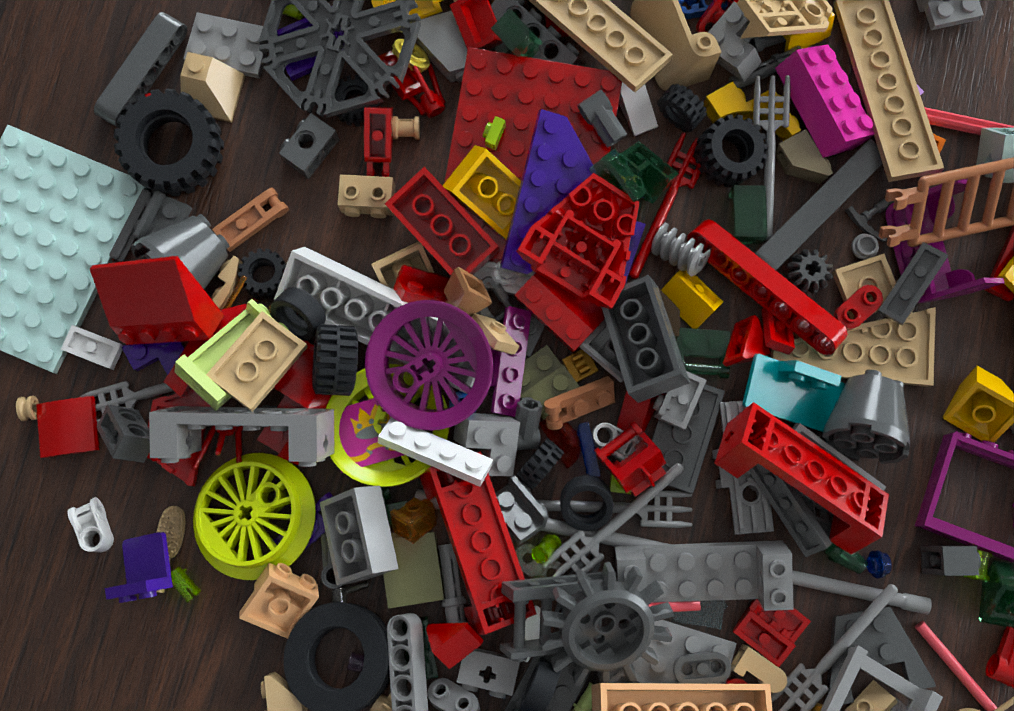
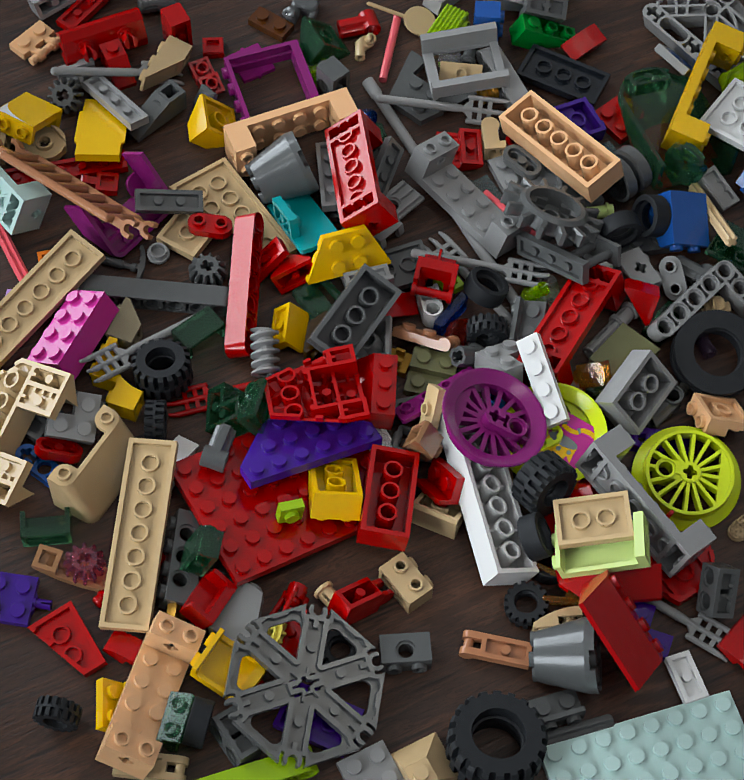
camera: 130 degrees left, 20 degrees down
(722, 395) = (345, 252): none -> yellow wing
(941, 410) = (310, 115): none -> light nougat plate
(980, 641) = (363, 44): none -> tan arm
(985, 254) = (104, 182): none -> red plate

